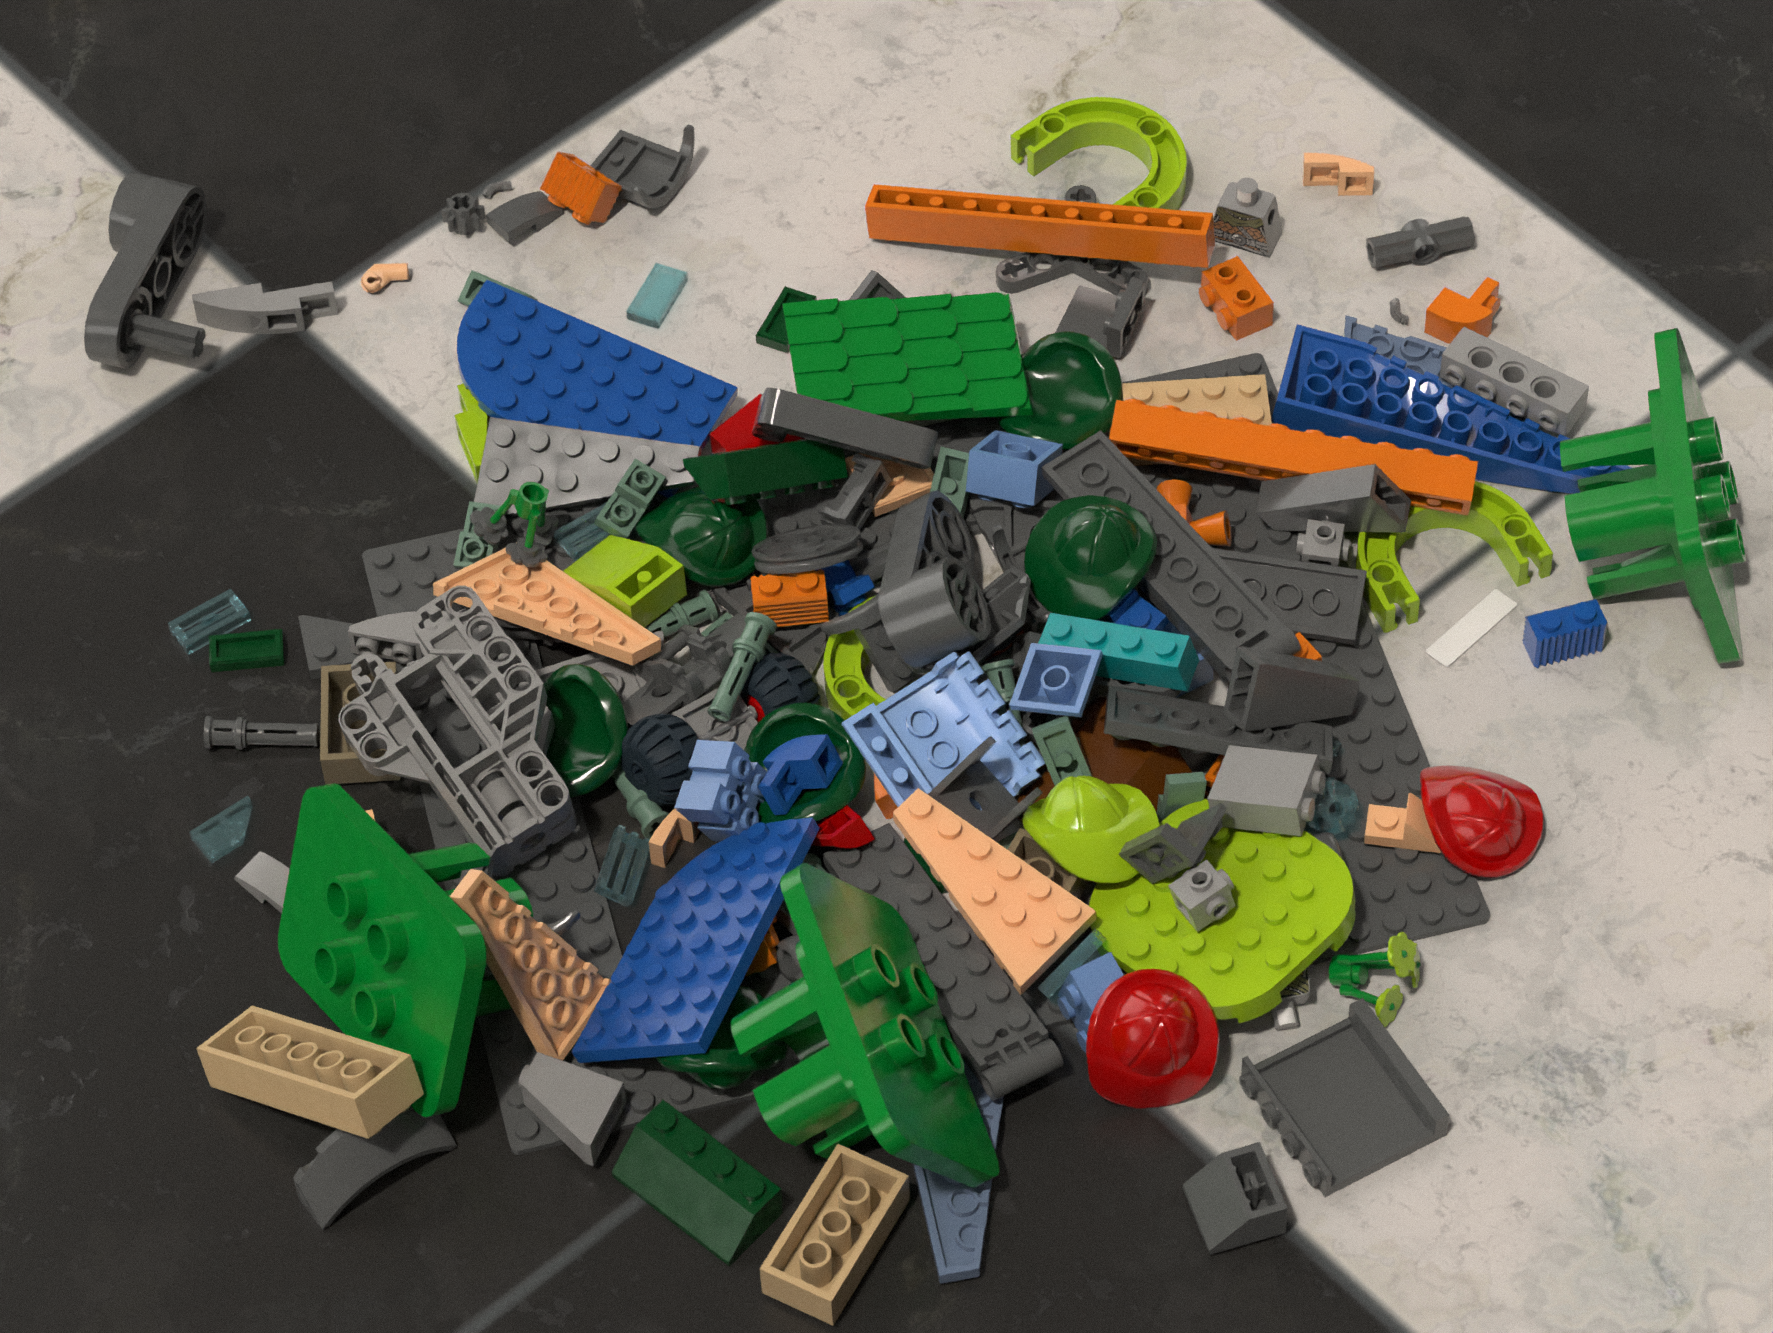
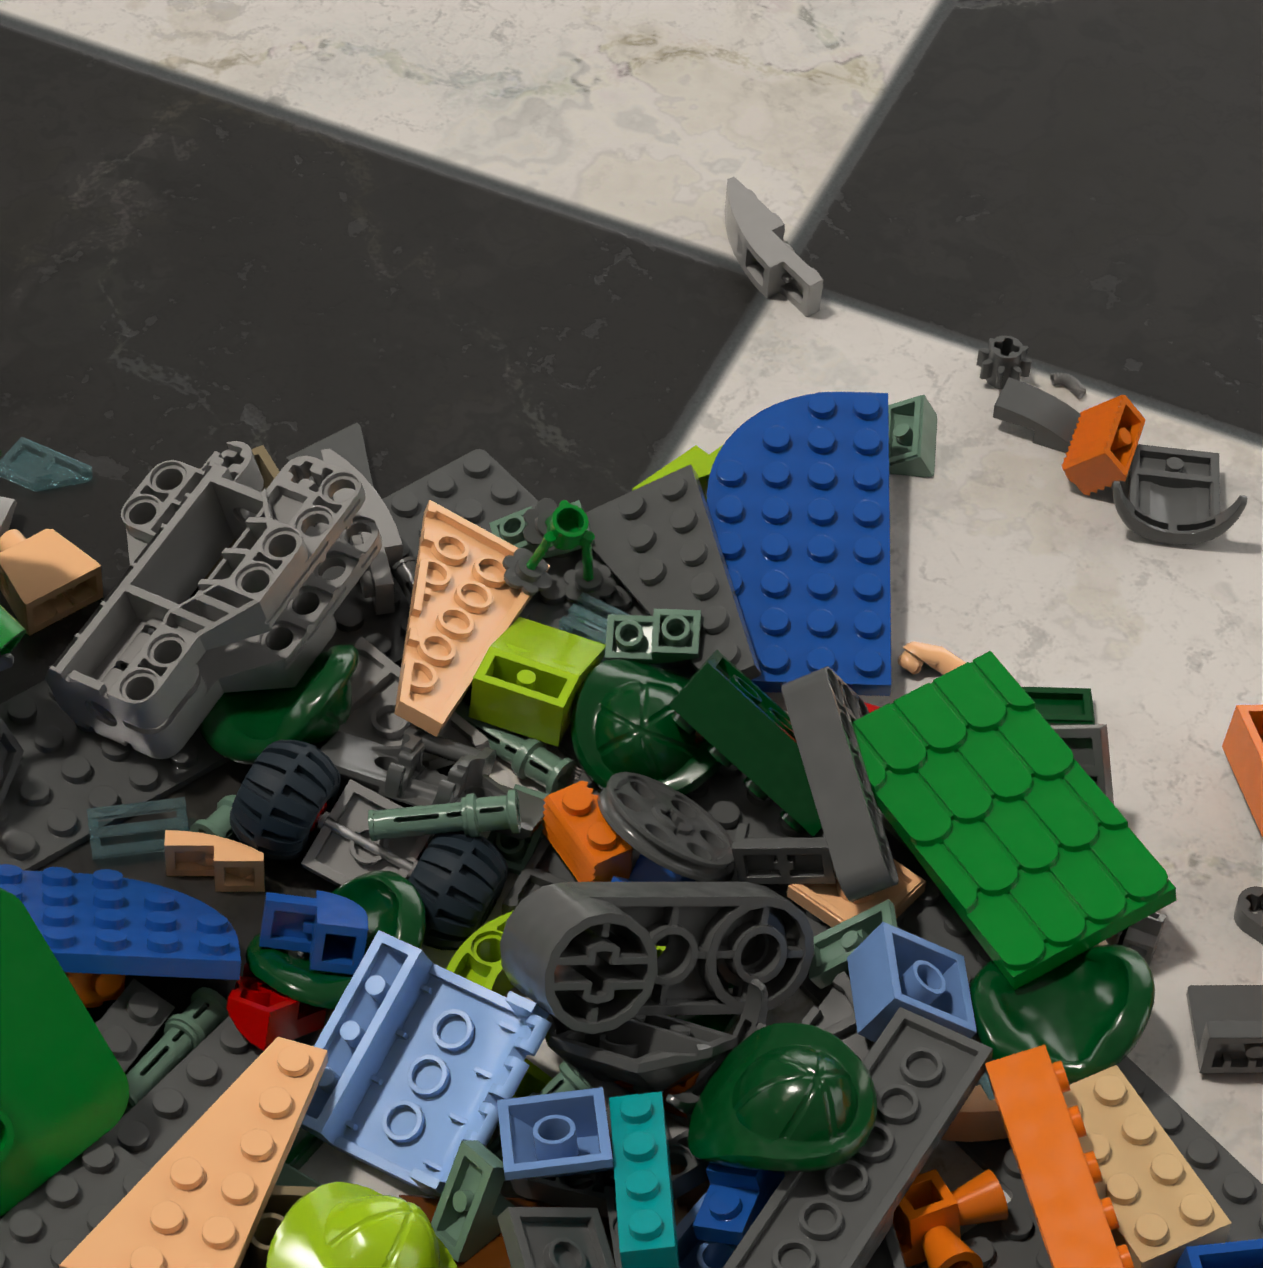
camera: 60 degrees right, 5 degrees down
(156, 234) = (786, 124): dark grey beam -> none
(211, 624) = (313, 362): clear light blue tile -> none
(241, 733) = (170, 418): dark grey pin -> none
(246, 650) = (294, 401): dark green tile -> none
(381, 274) = (876, 328): light nougat arm -> none
(657, 295) = (1004, 577): clear light blue tile -> none
(714, 358) = (935, 656): none -> light nougat arm
(721, 789) = (254, 861): medium blue brick -> none
(975, 781) = (373, 1097): dark grey hose -> none

